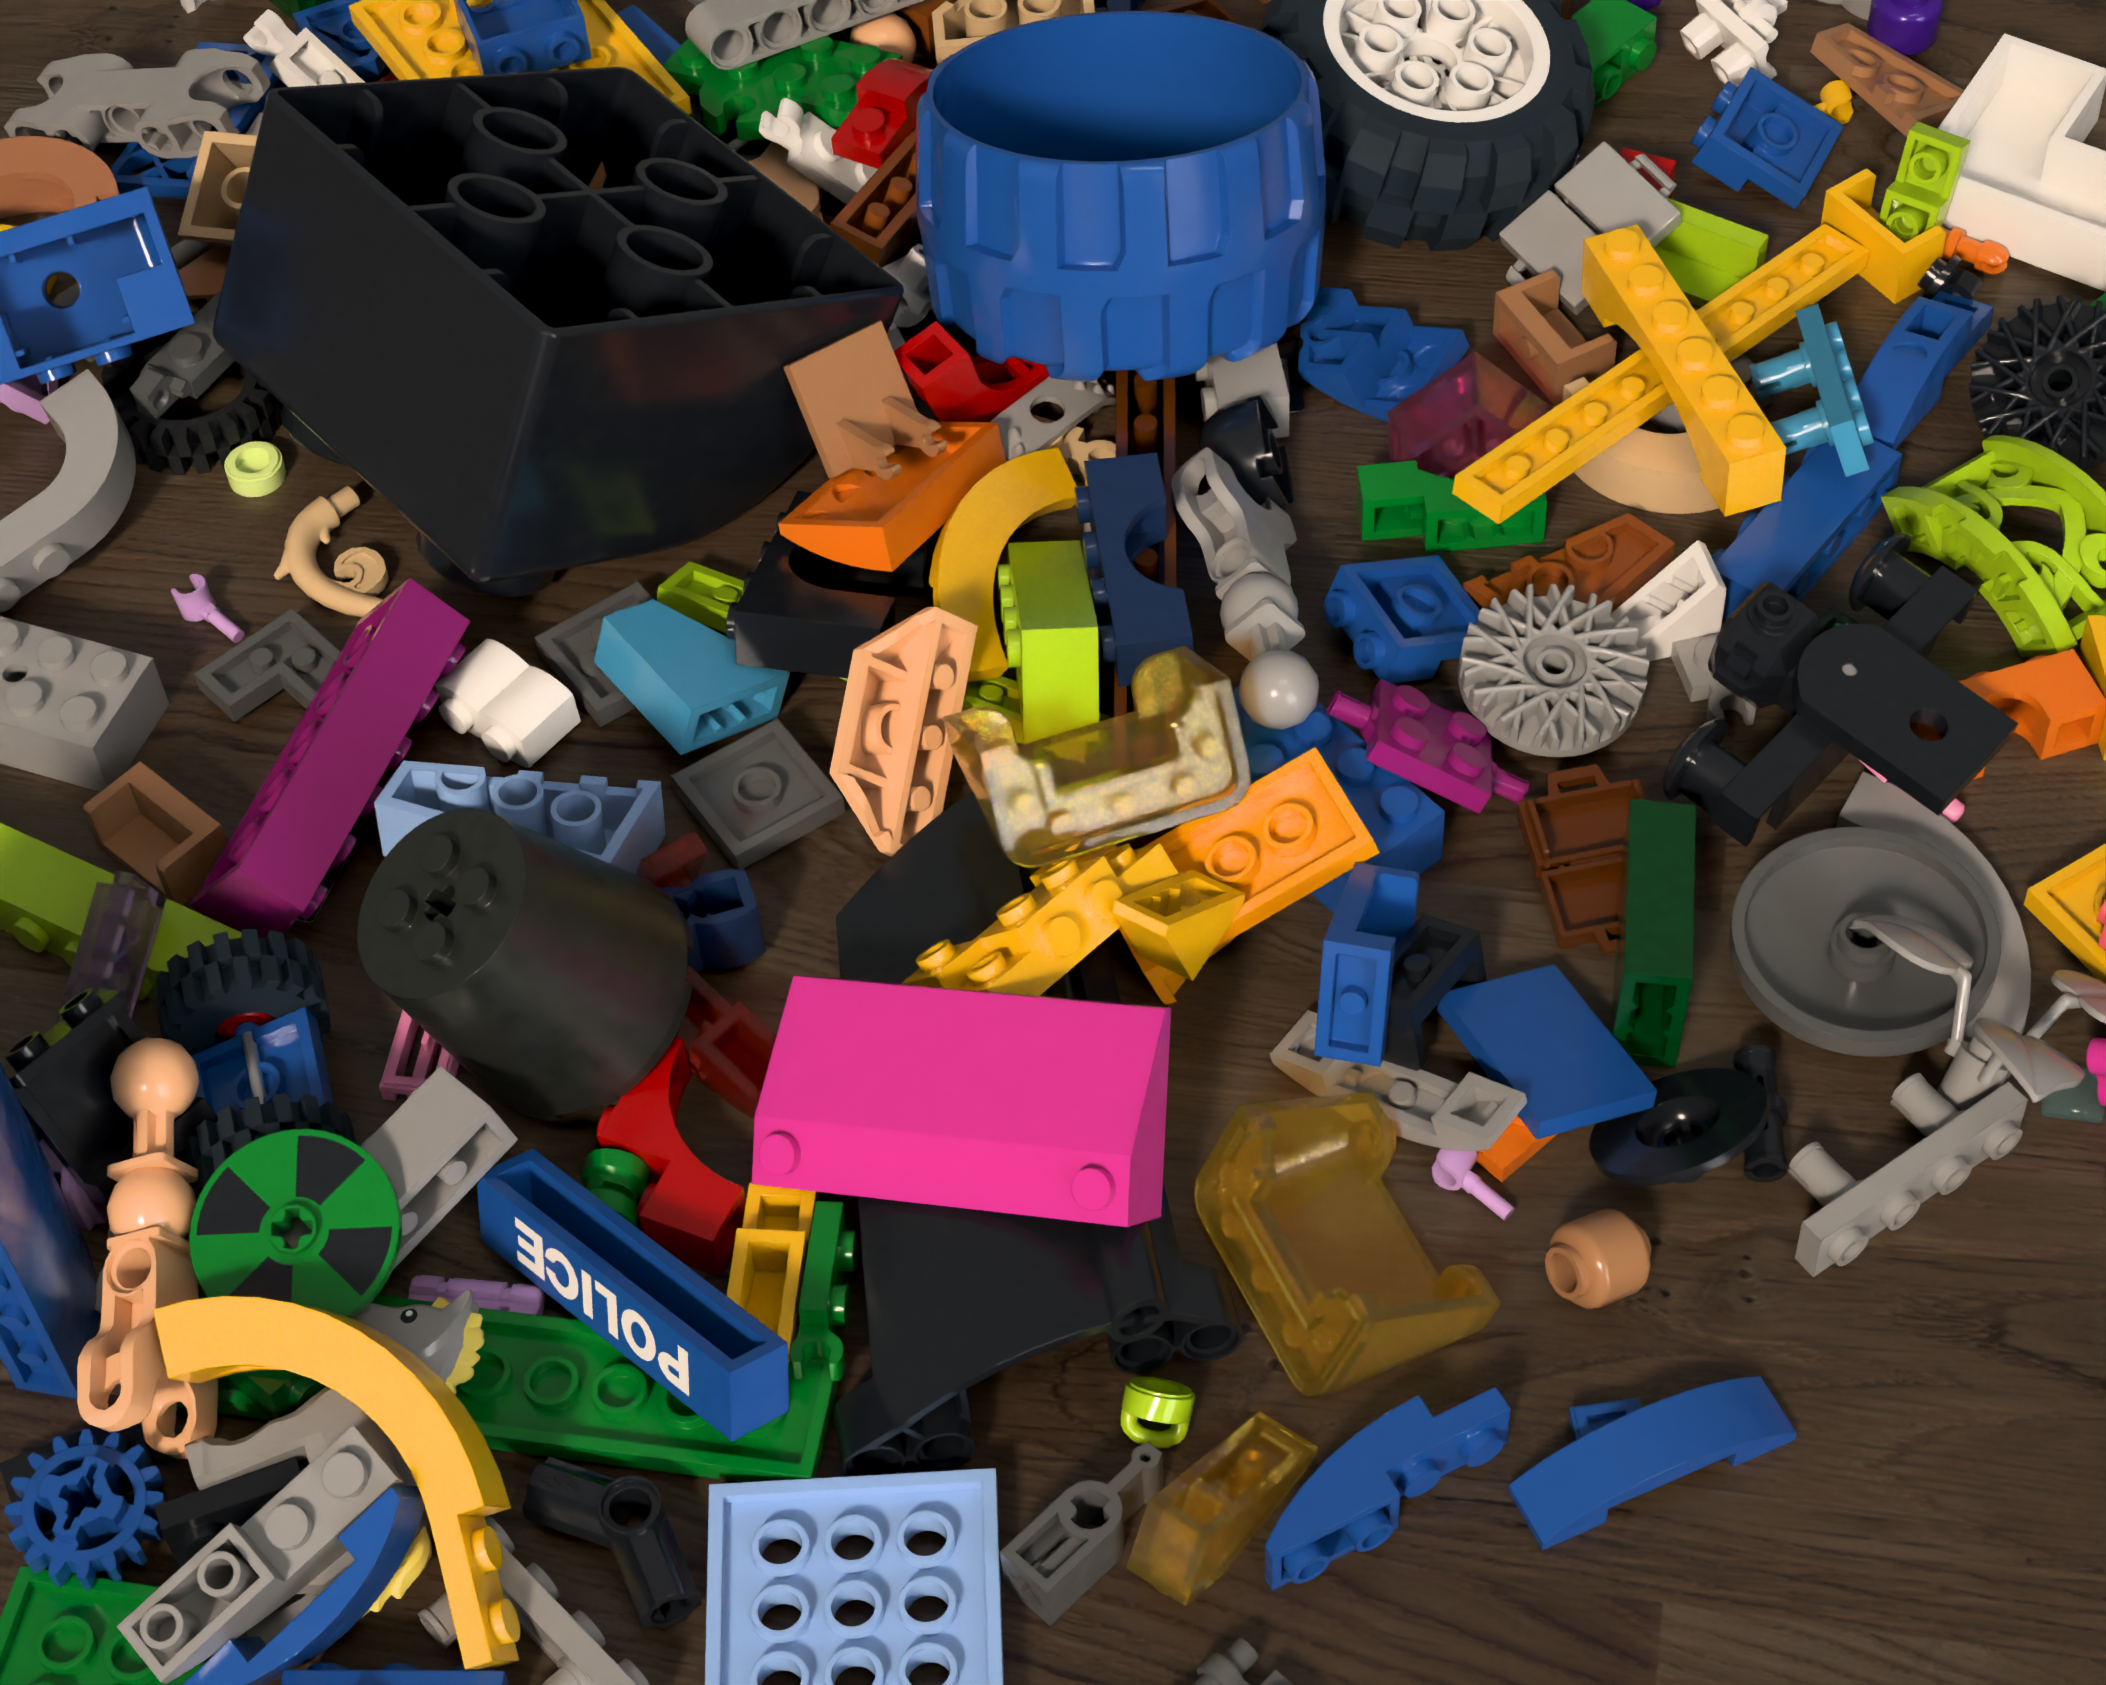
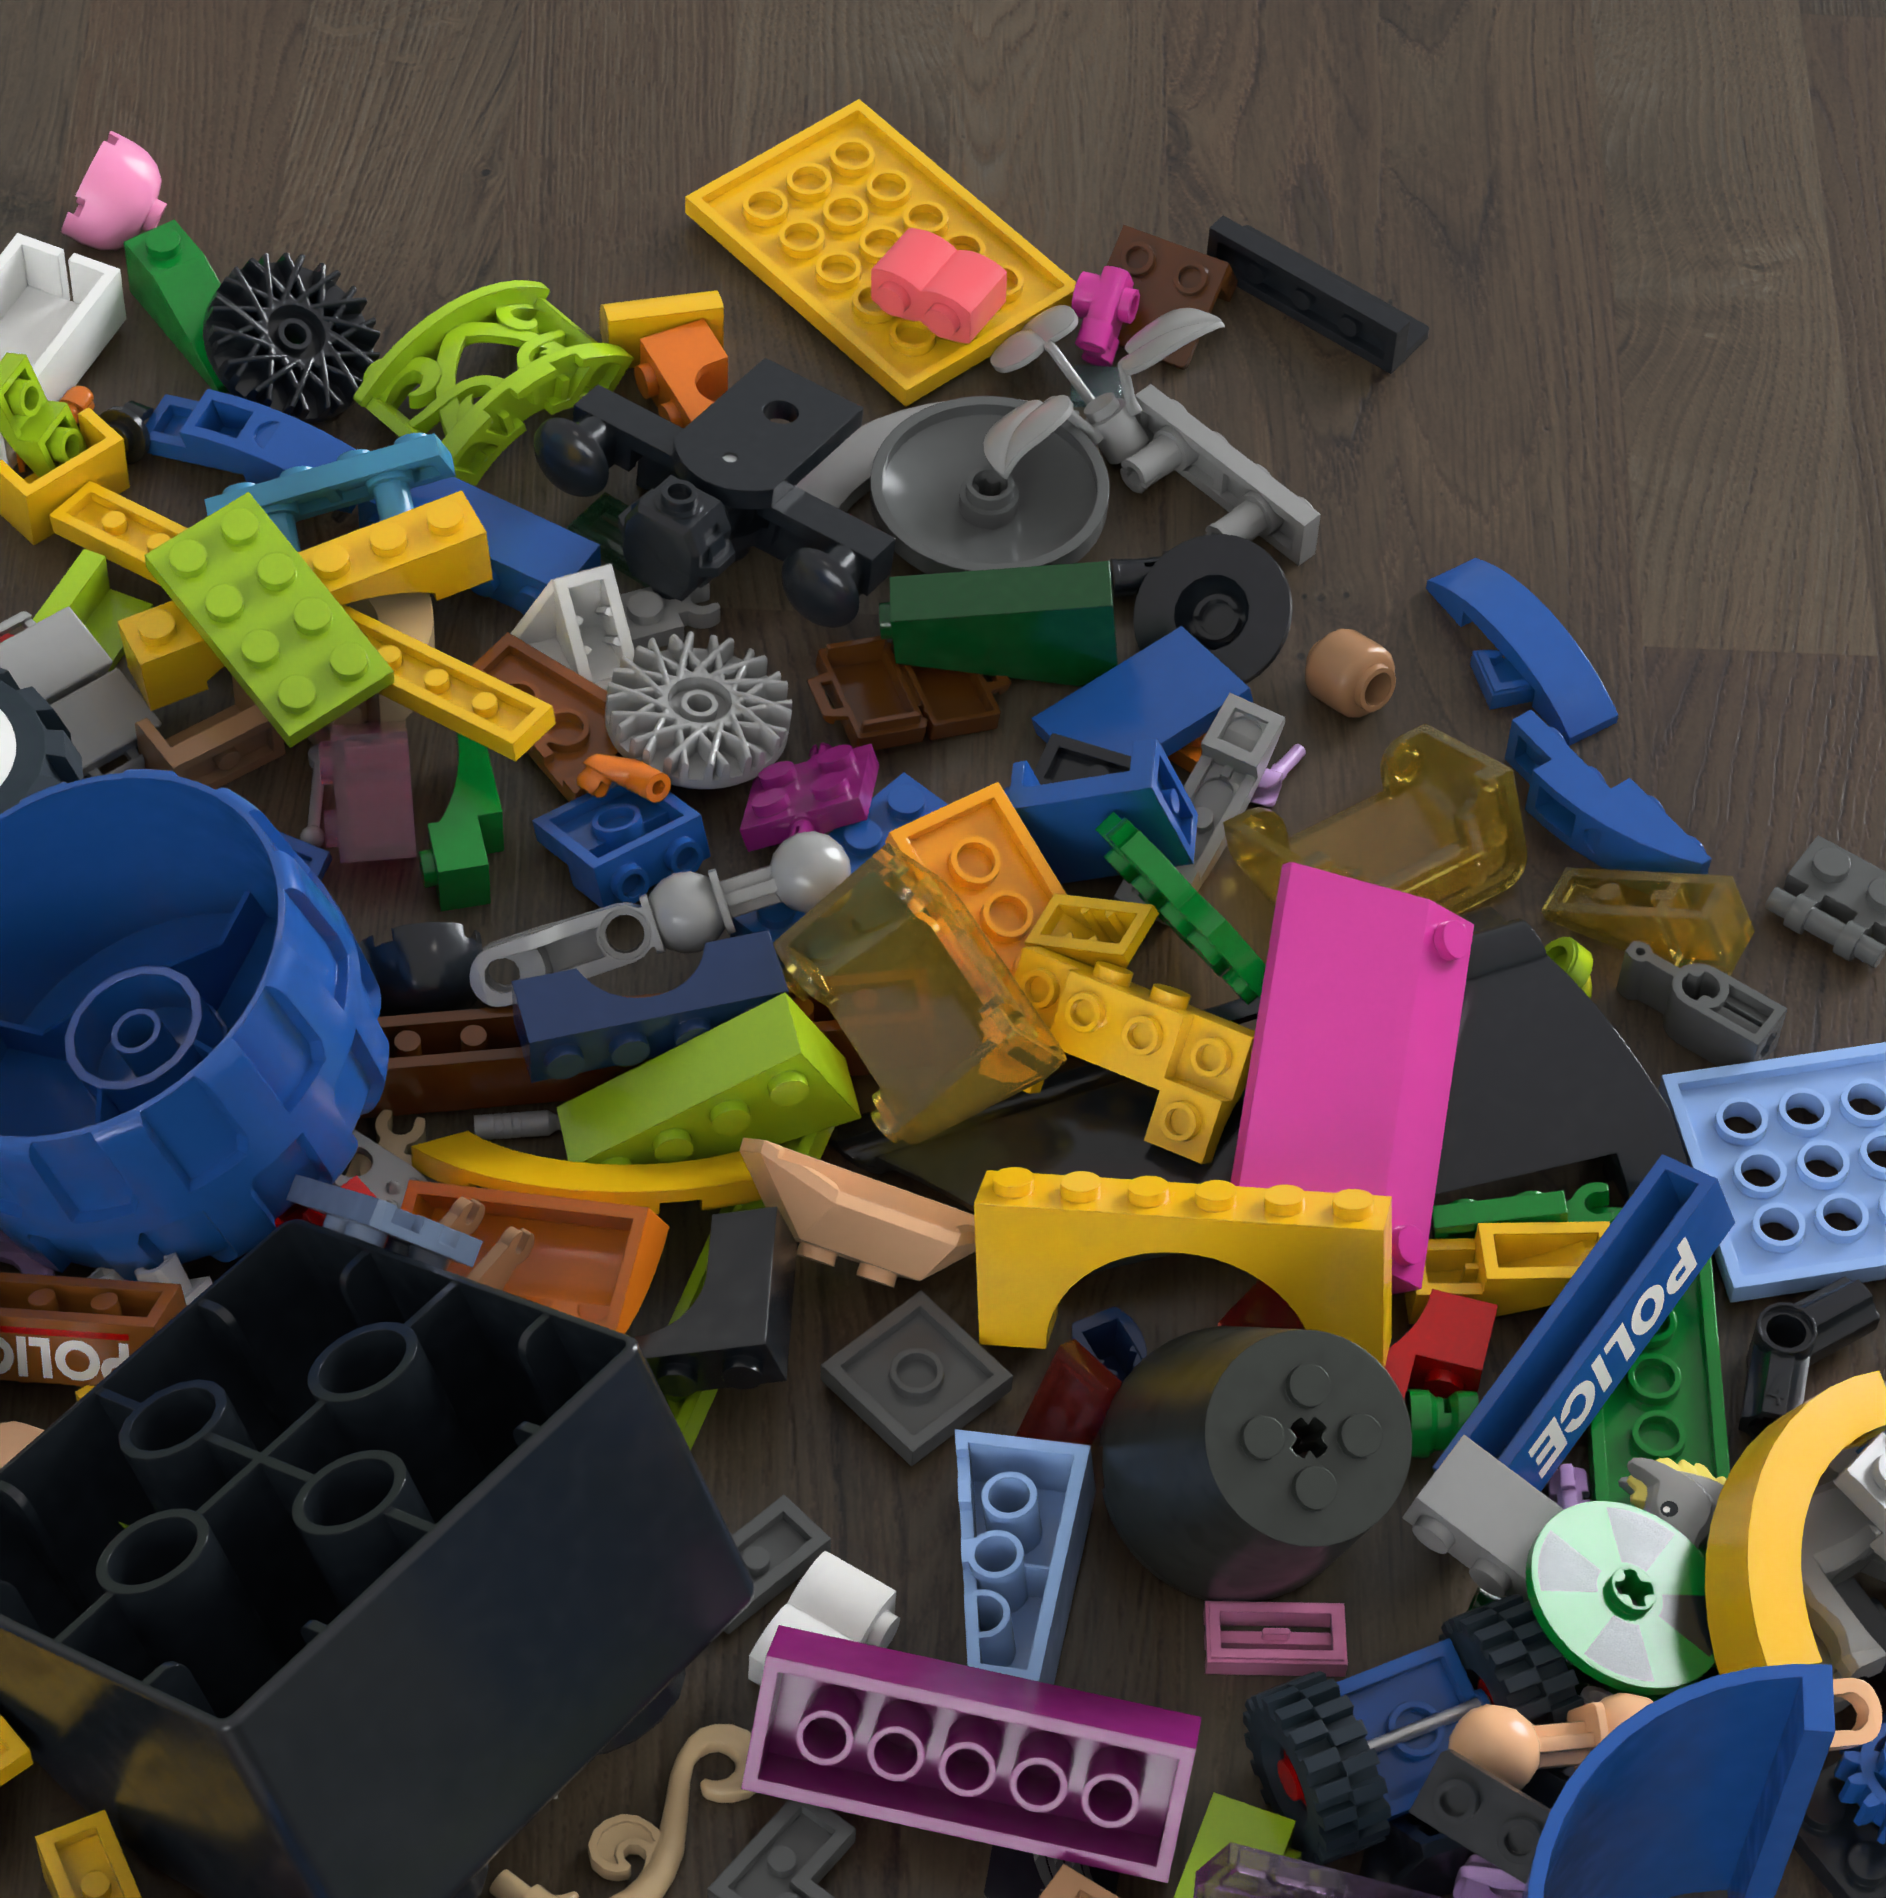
camera: 105 degrees left, 0 degrees up
(685, 676) = (792, 1447): dark azure slope -> none
(767, 952) = (1050, 1230): none -> yellow arch
(861, 323) = (376, 1220): none -> sand blue wing
(1221, 969) = (1182, 907): none -> green plate
(1474, 594) = (627, 772): none -> orange arm
(1616, 306) = (269, 619): none -> lime plate

